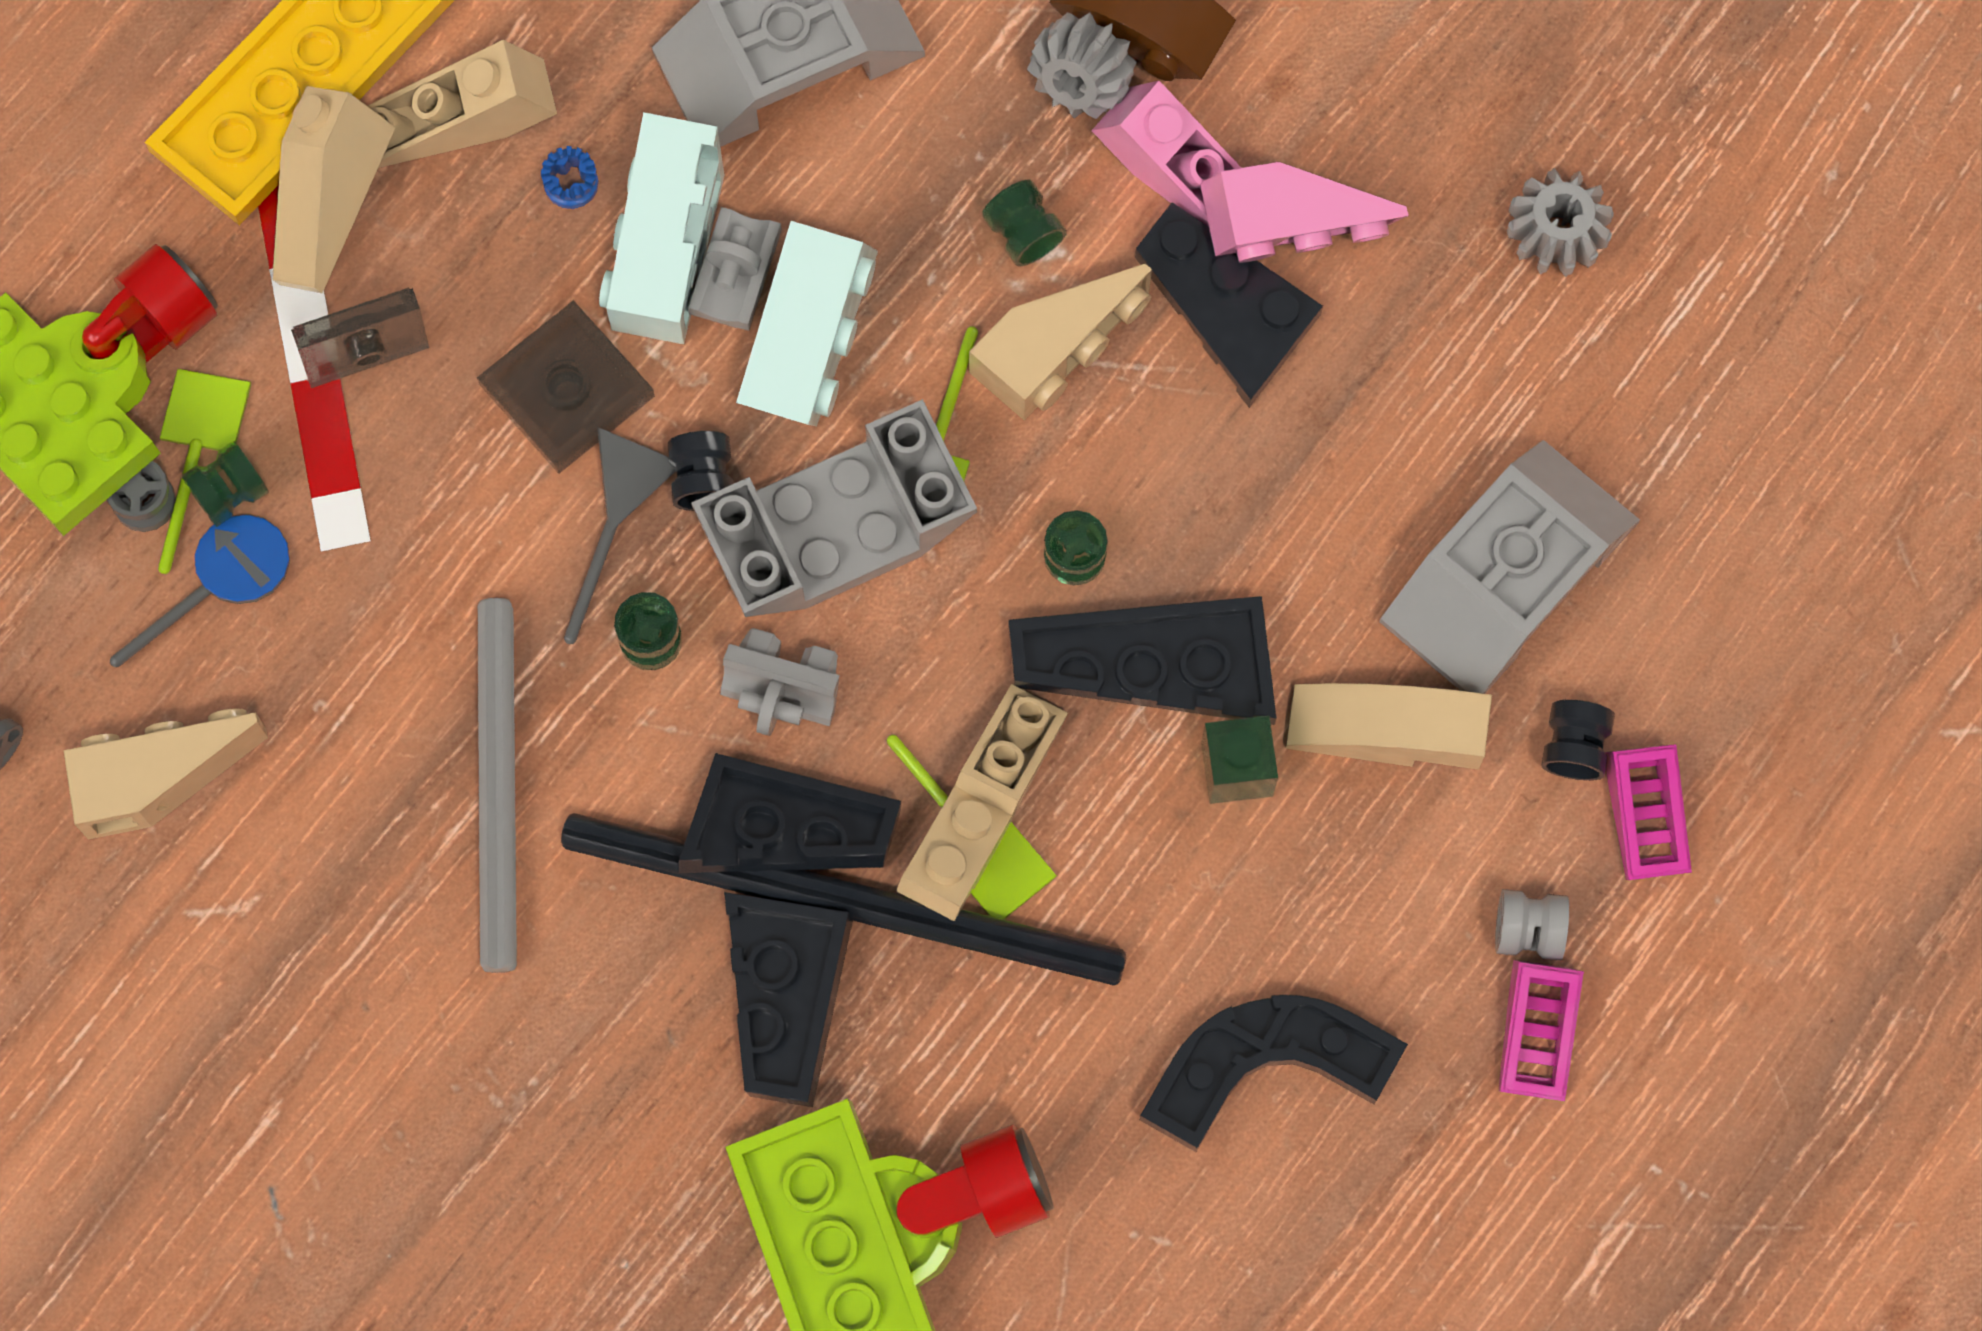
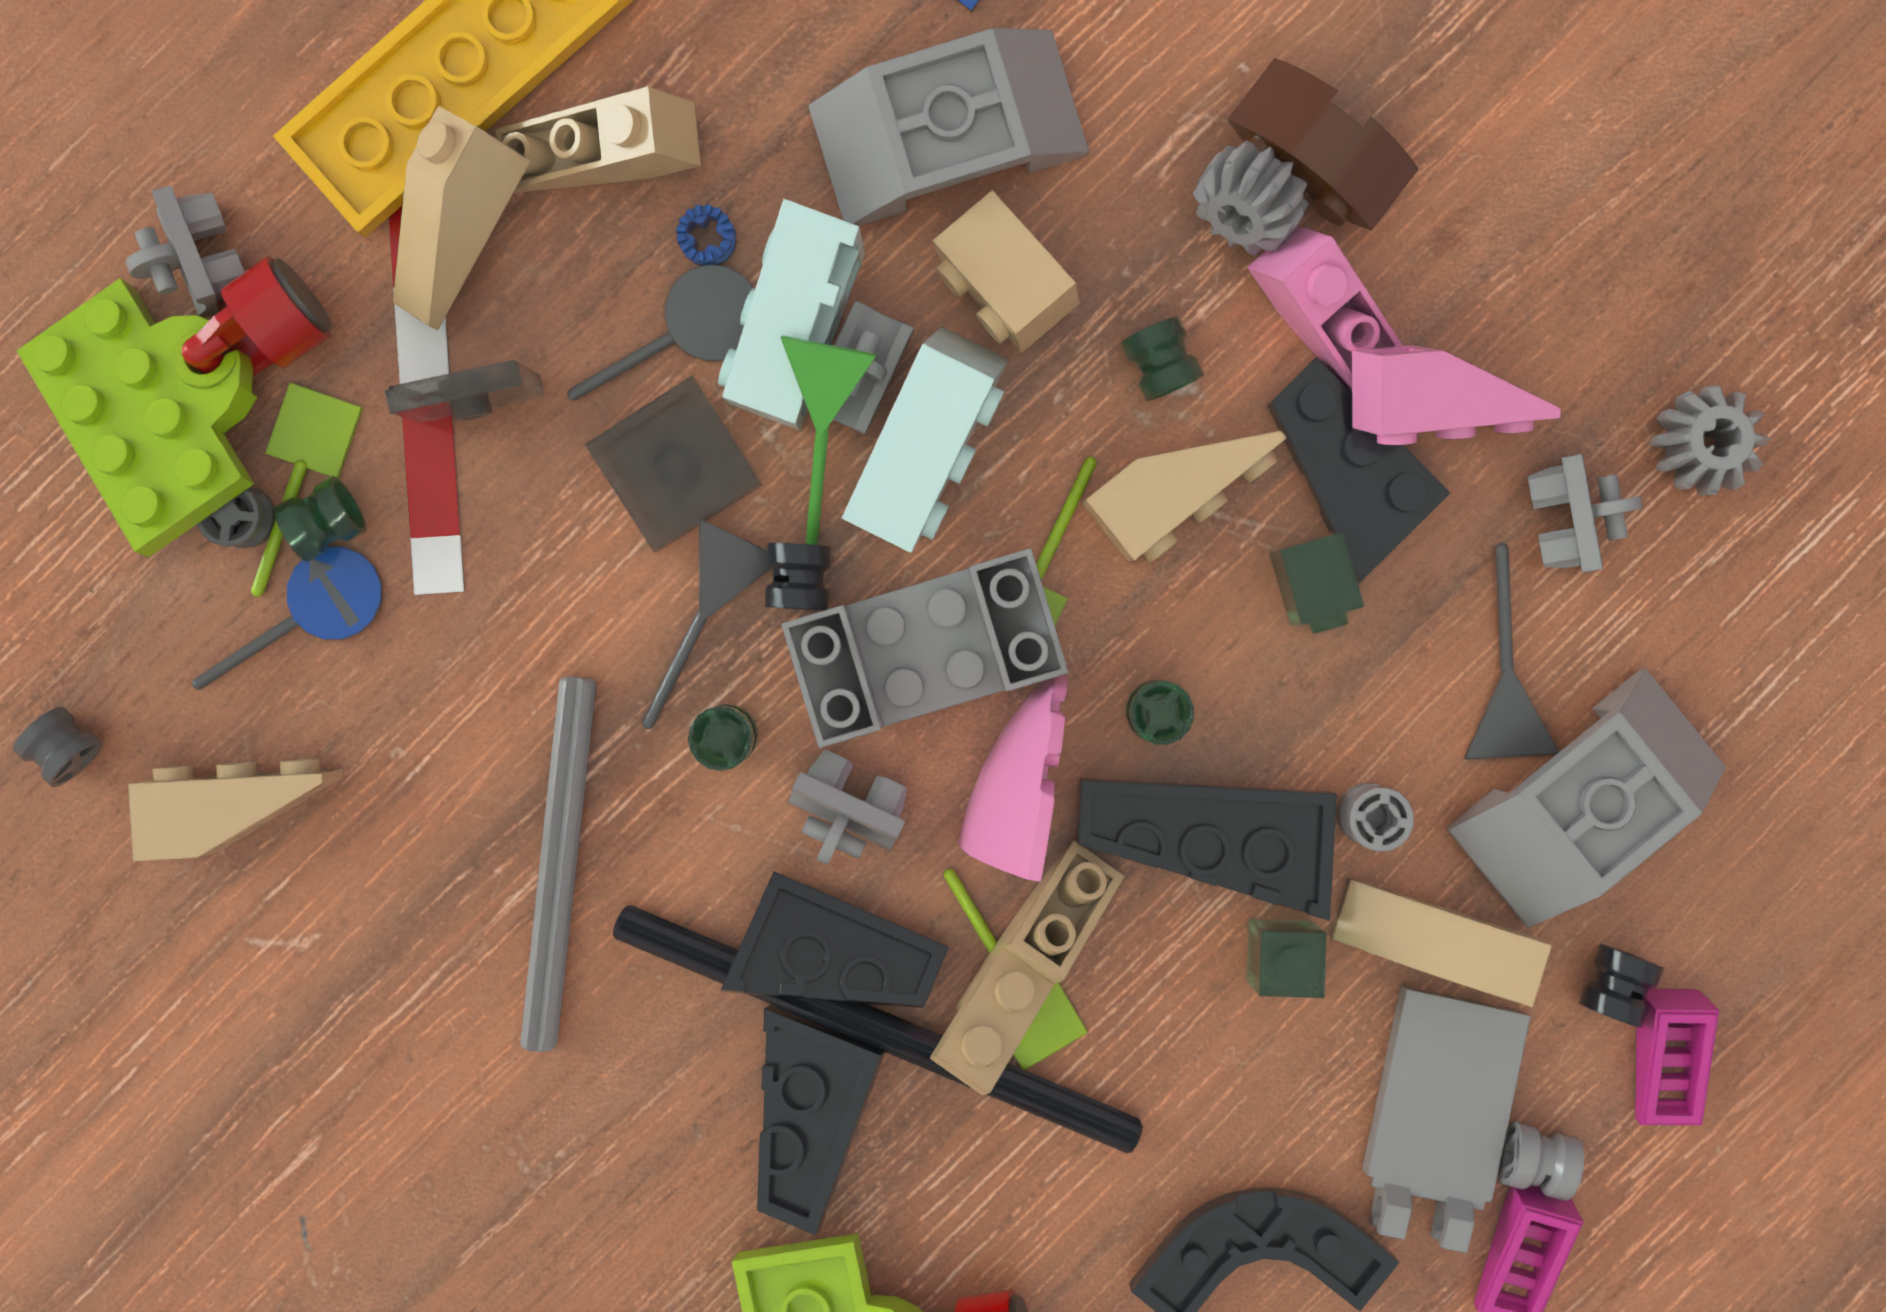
camera: 10 degrees right, 15 degrees up
(62, 262) = (184, 222): none -> light grey hips
(574, 254) = (700, 317): none -> dark grey piece
(704, 272) = (826, 381): none -> bright green piece
(861, 165) = (1005, 273): none -> tan brick
(942, 635) = (1012, 799): none -> bright pink brick
(1207, 402) = (1317, 582): none -> clear green brick
(1302, 628) = (1361, 814): none -> light grey wheel
(1424, 510) = (1510, 720): none -> dark grey piece
(1427, 893) = (1442, 1111): none -> light grey tile
(1435, 282) = (1569, 485): none -> light grey hips

